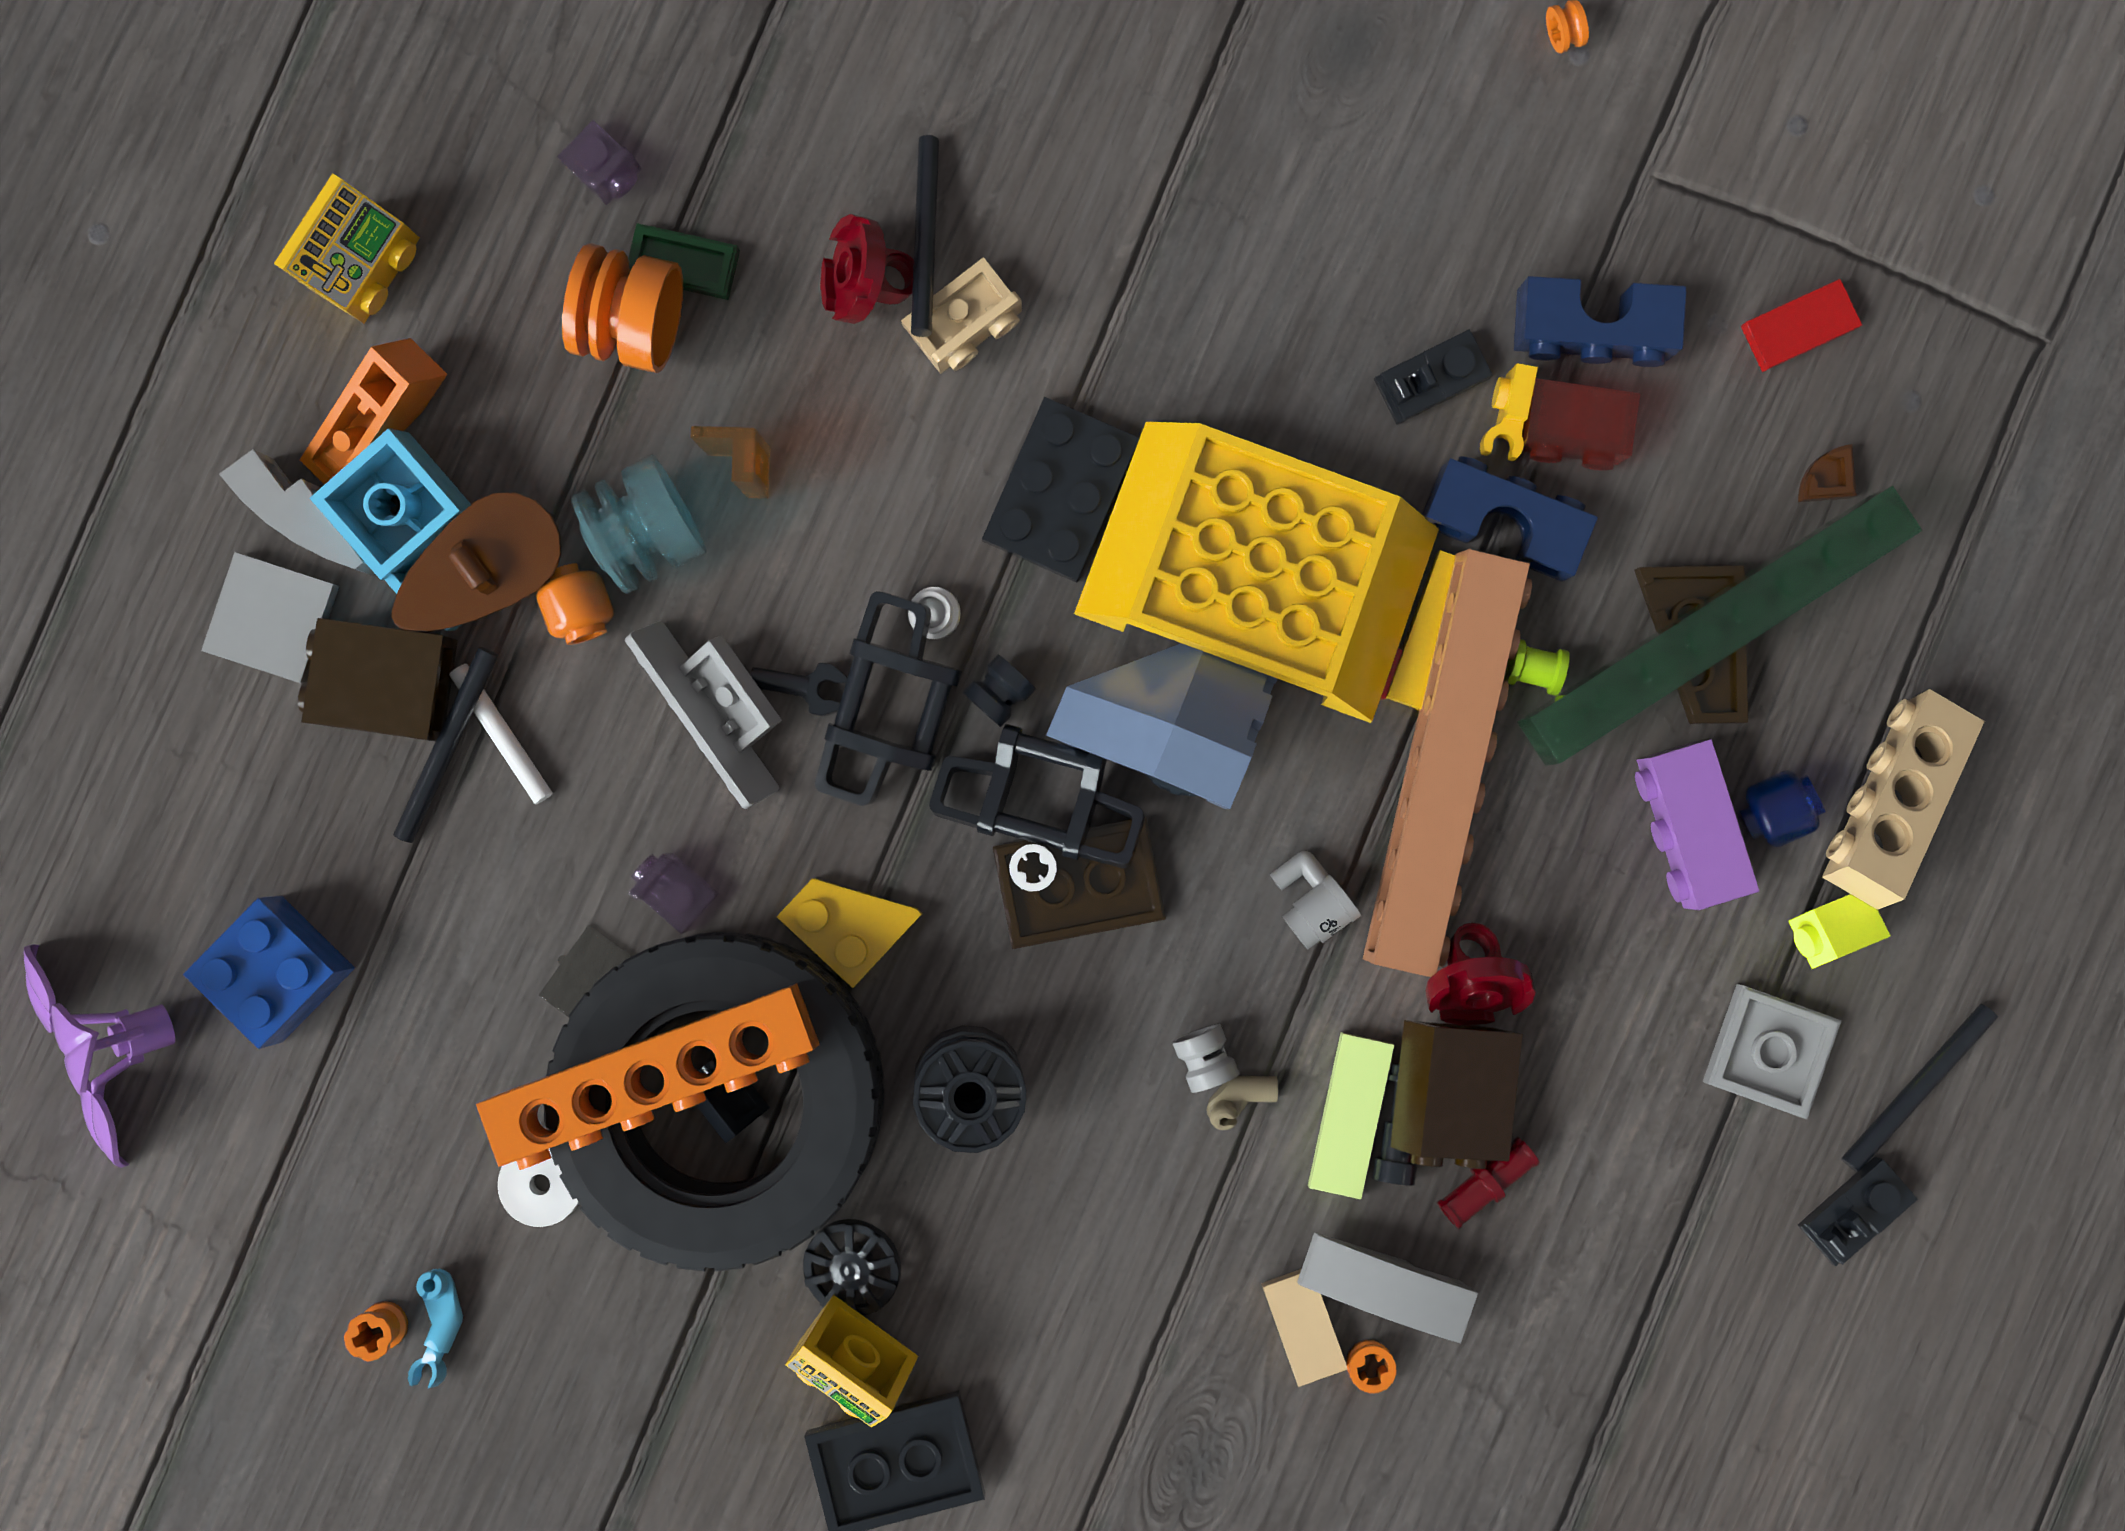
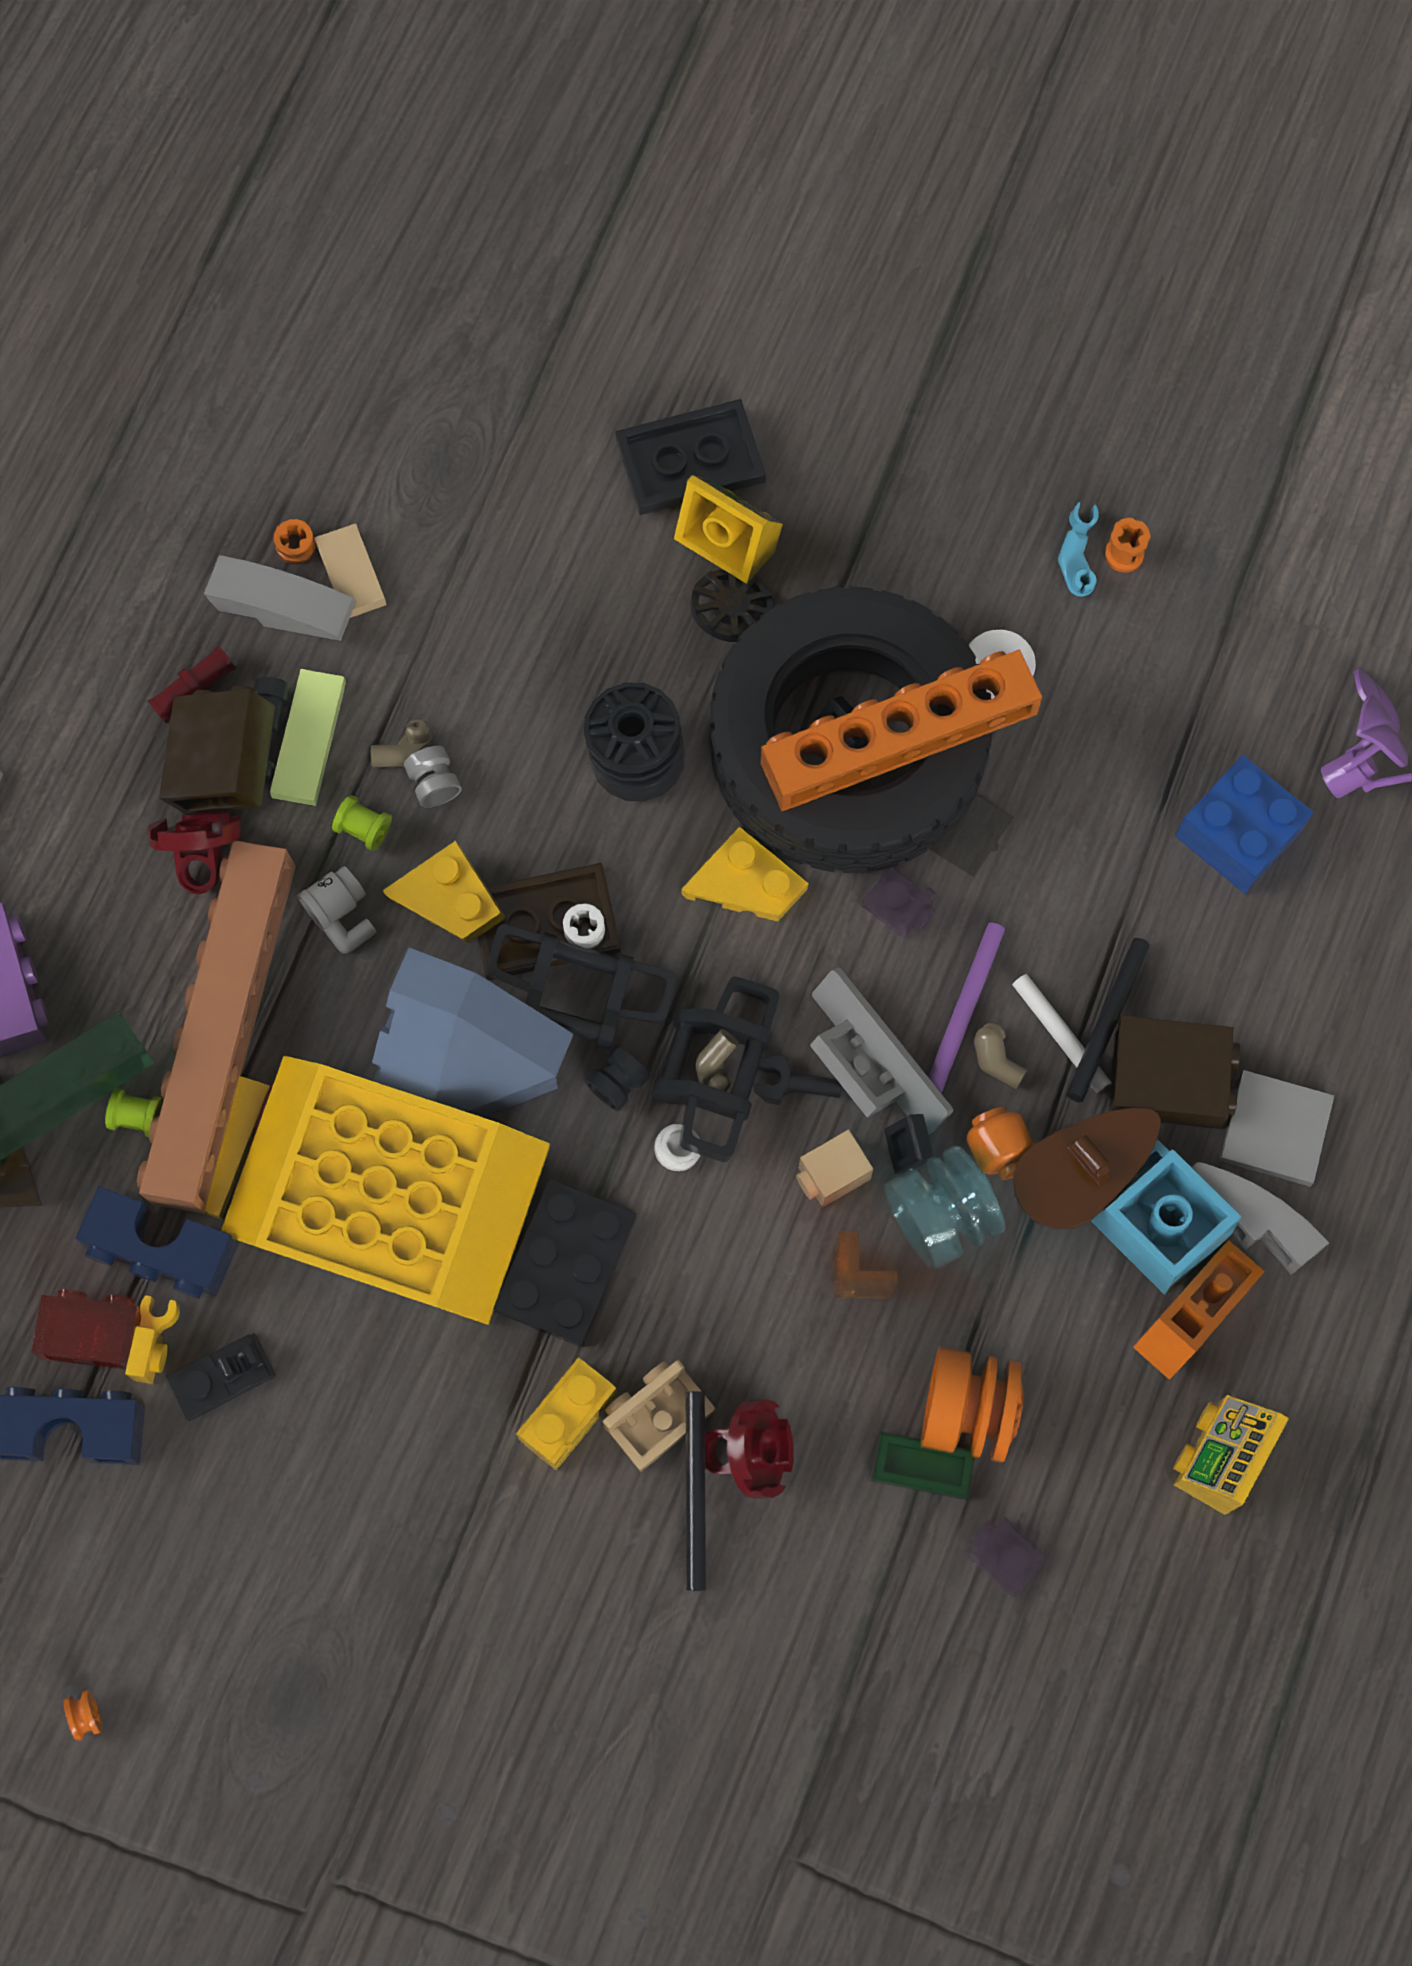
camera: 175 degrees right, 15 degrees down
(579, 708) = (992, 1056): none -> dark tan arm
(606, 768) = (966, 1005): none -> medium lavender bar
(677, 606) = (908, 1143): none -> black tile
(762, 580) = (833, 1169): none -> tan brick
(892, 706) = (710, 1062): none -> dark tan arm
(1060, 317) = (567, 1413): none -> yellow brick
(1187, 912) = (448, 894): none -> yellow wing
(1287, 1004) = (361, 822): none -> lime bush

